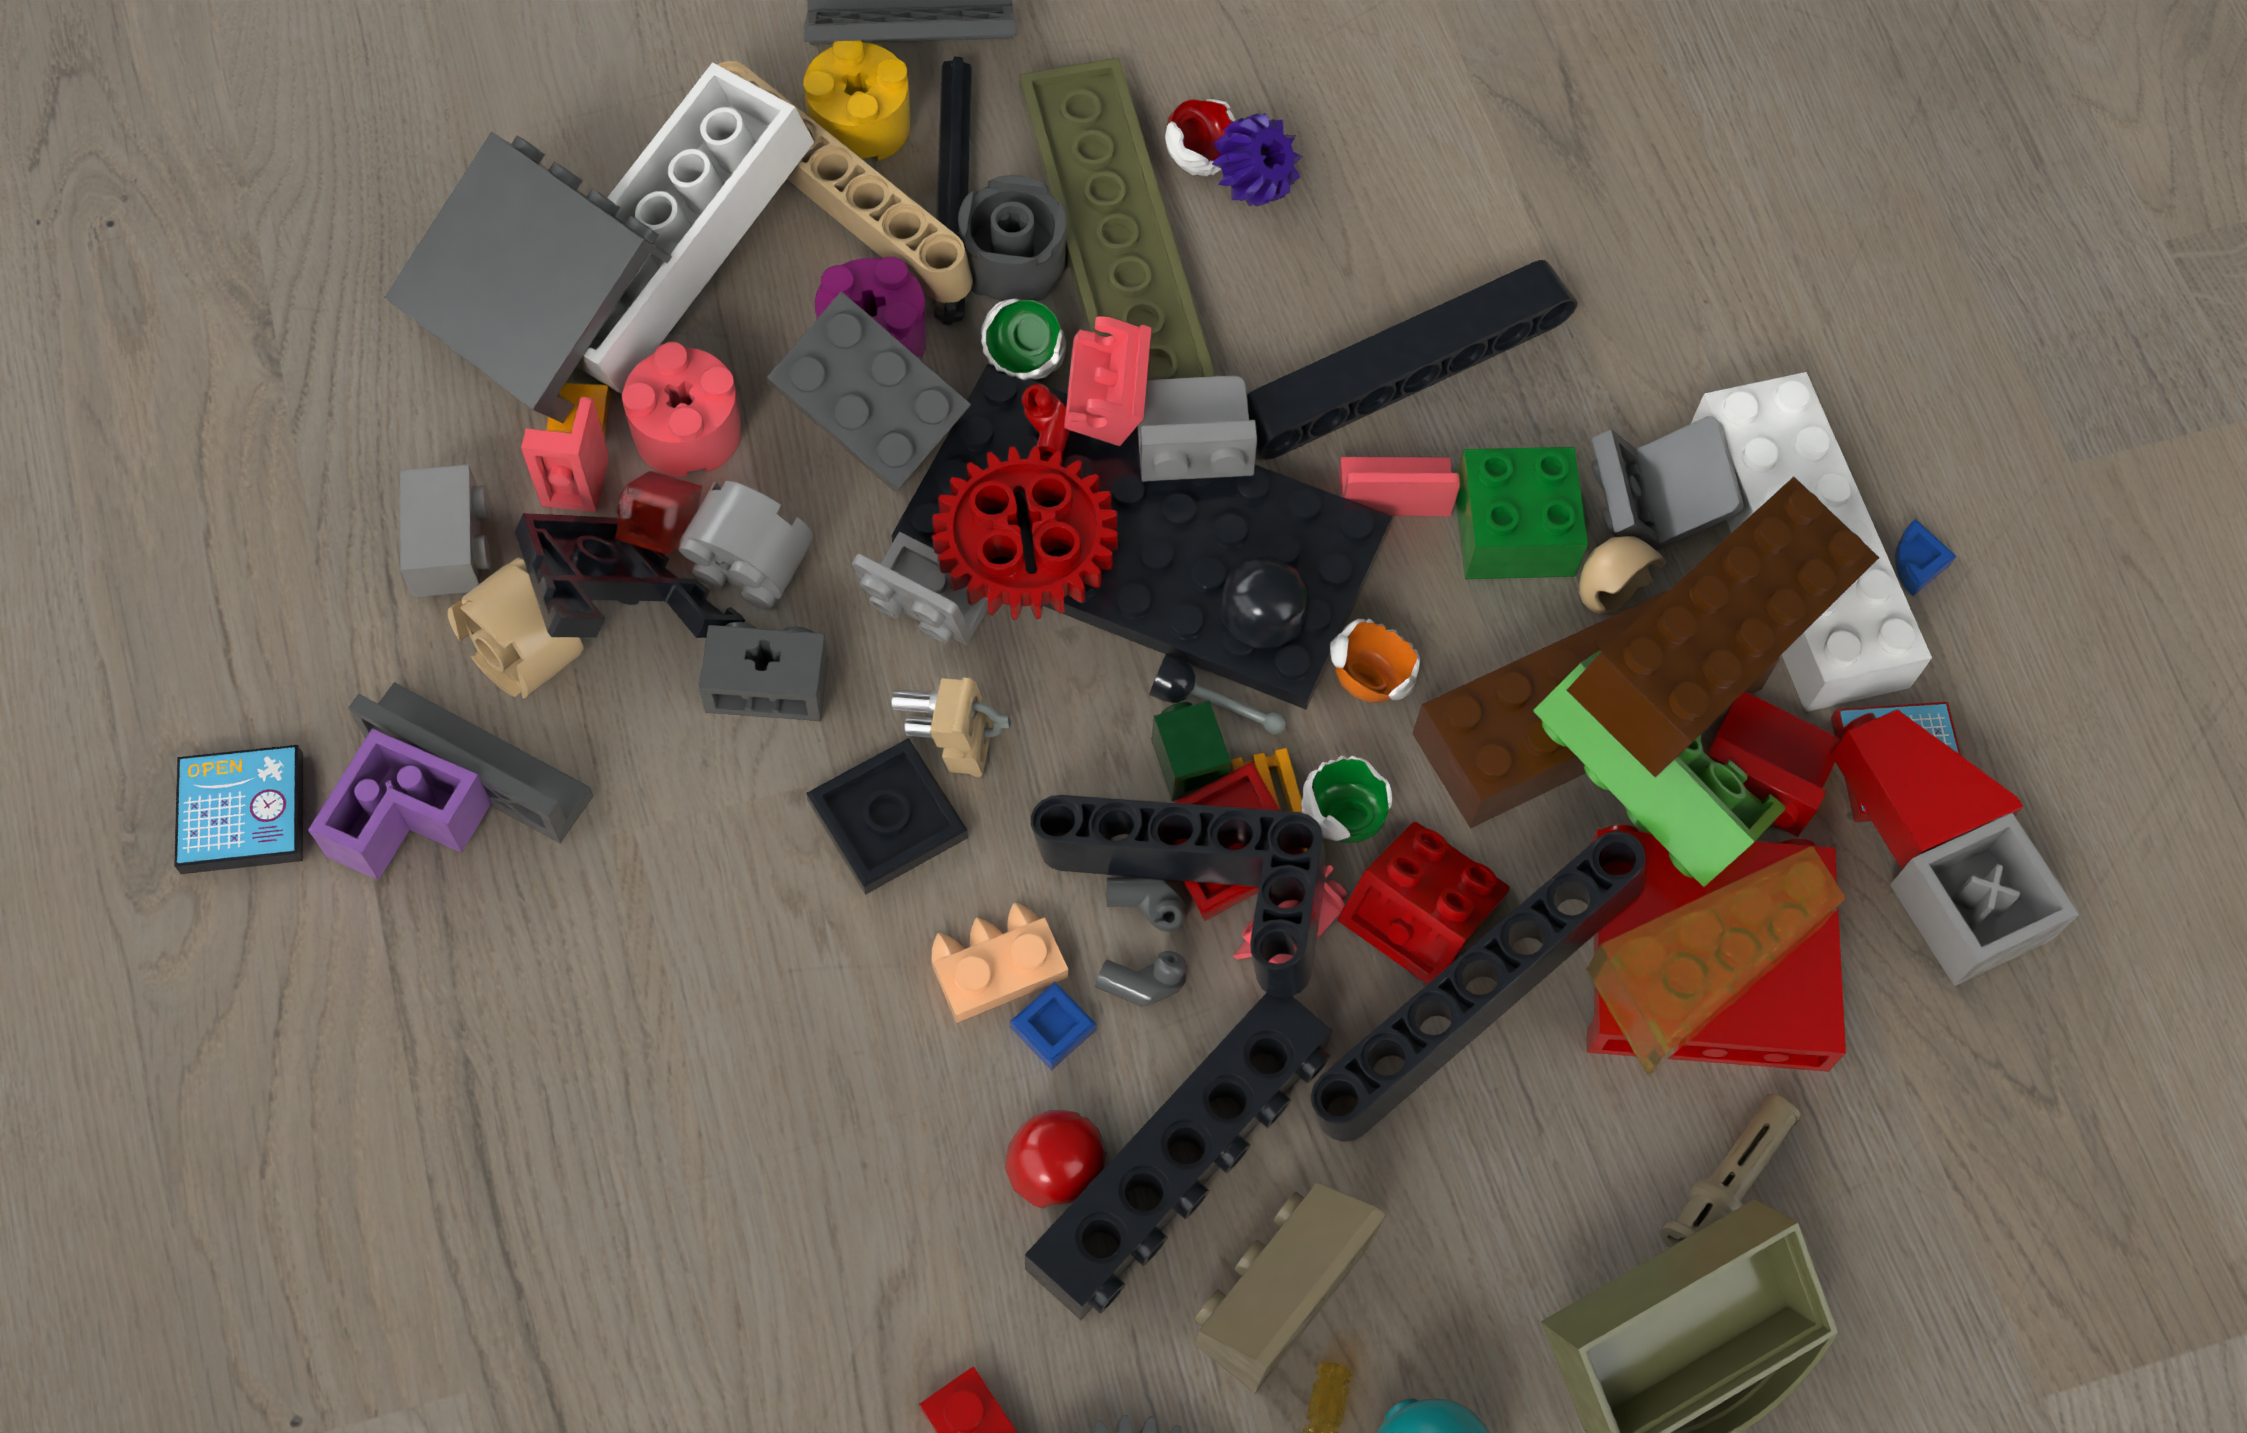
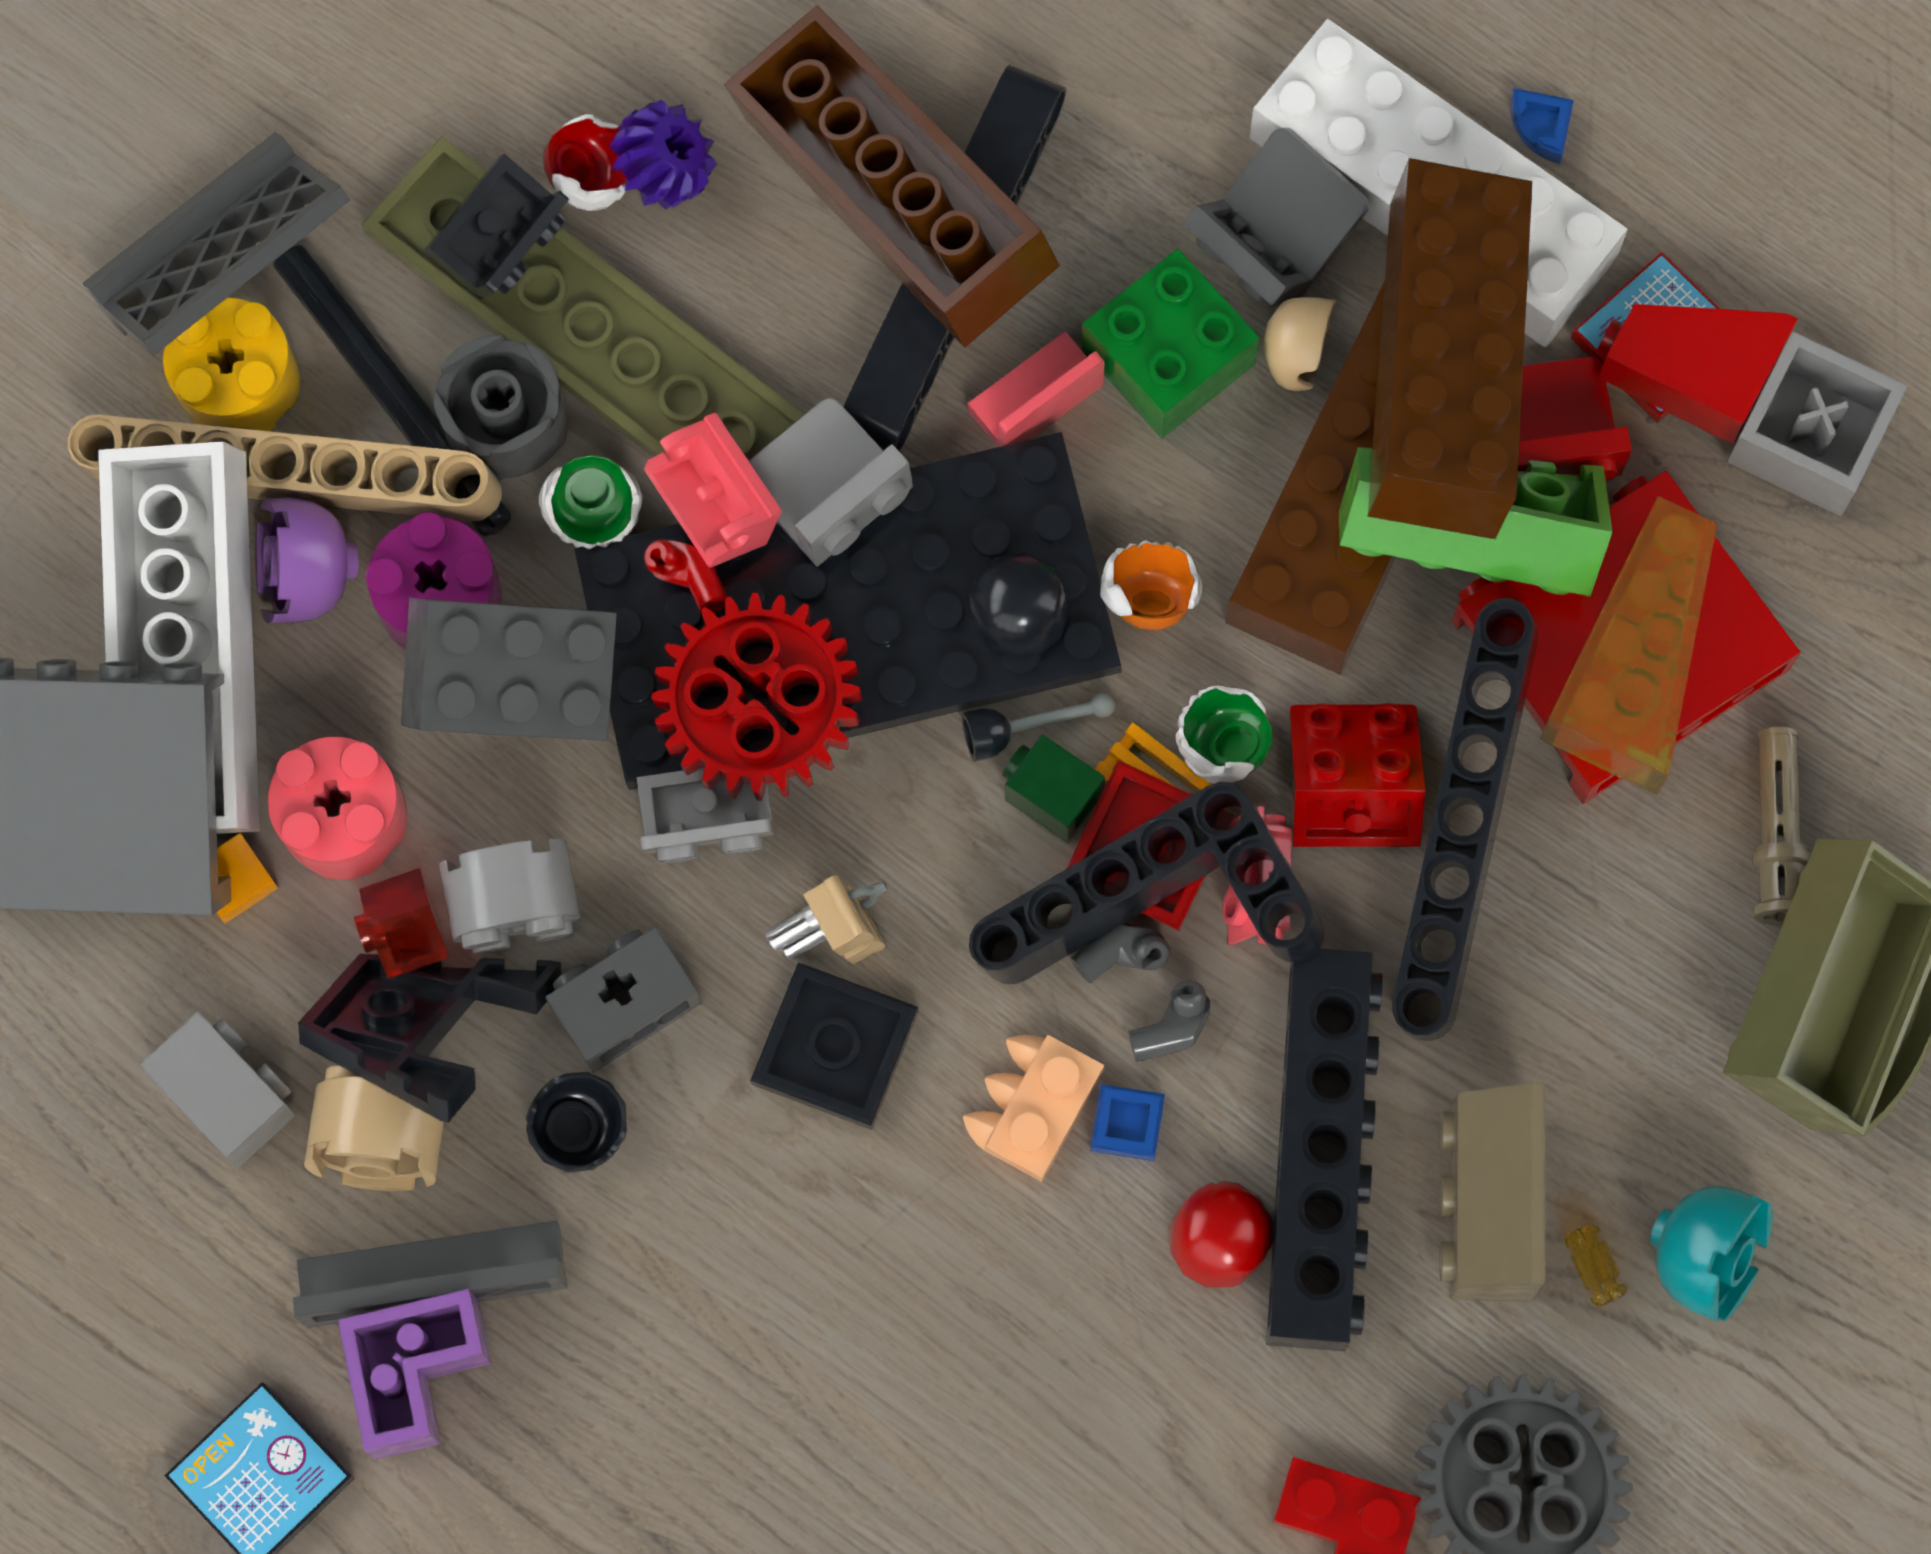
camera: 30 degrees left, 10 degrees up
(568, 466) = (286, 947): coral panel -> none
(659, 728) = (576, 1122): none -> black hair
(798, 243) = (301, 560): none -> medium lavender cylinder
(1103, 125) = (497, 228): none -> black bracket
(1404, 267) = (892, 176): none -> reddish brown brick

